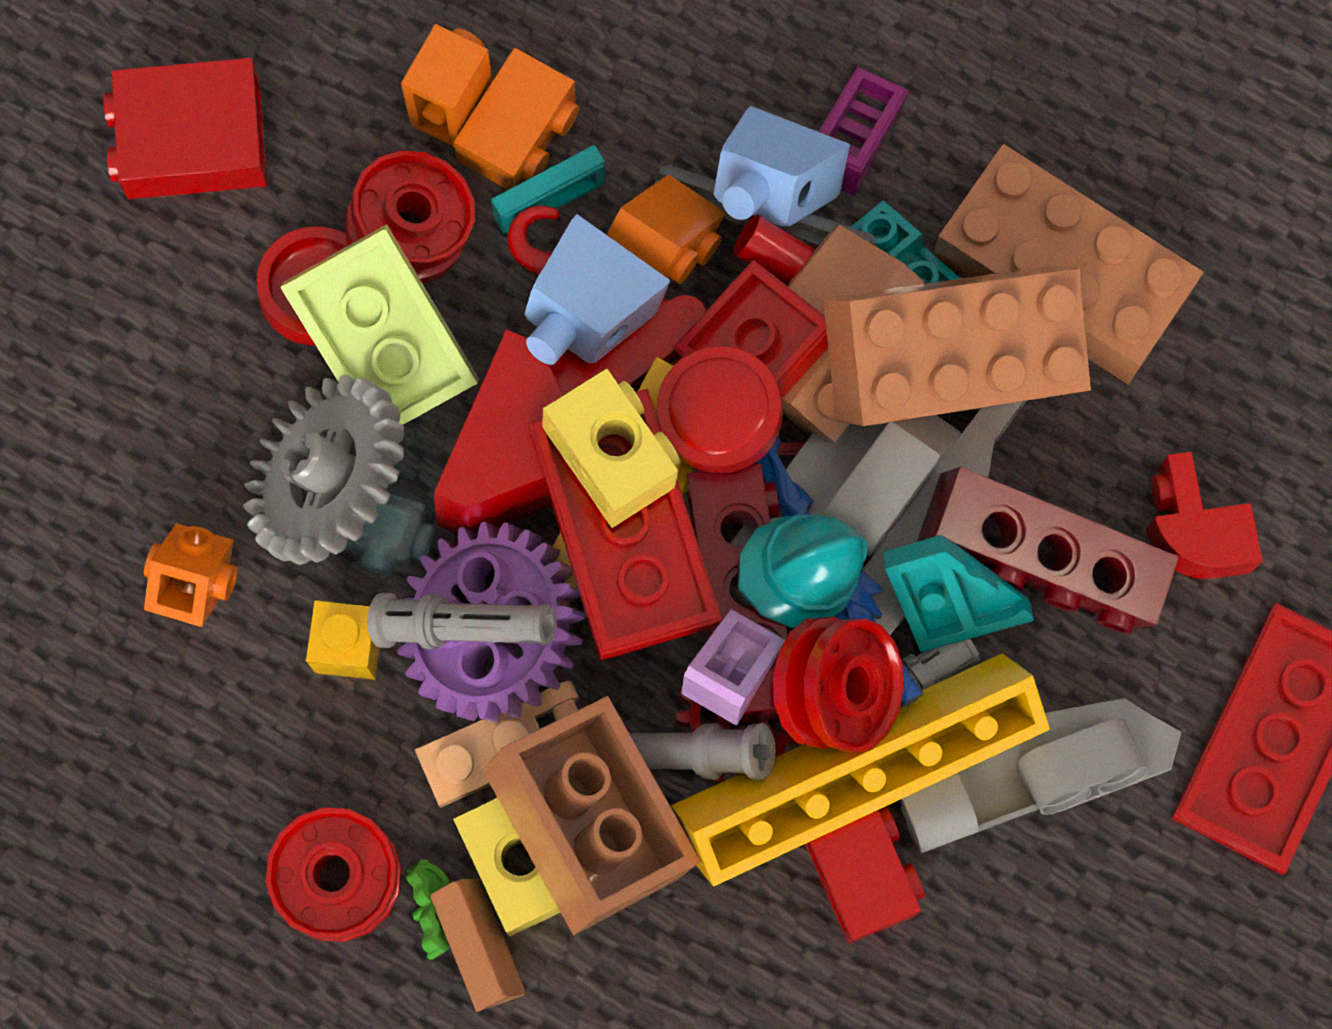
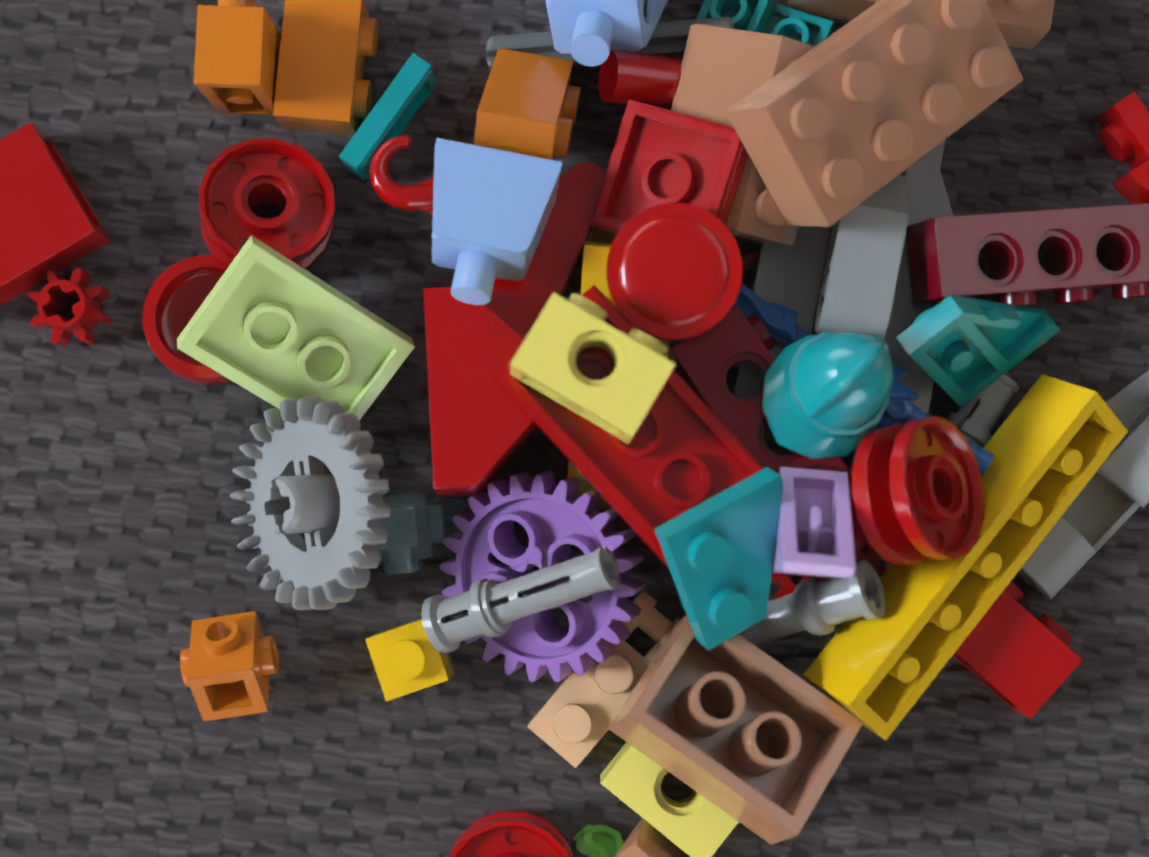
camera: 20 degrees left, 10 degrees up
(219, 228) = (87, 311): none -> red gear
(644, 656) = (725, 556): none -> teal wing

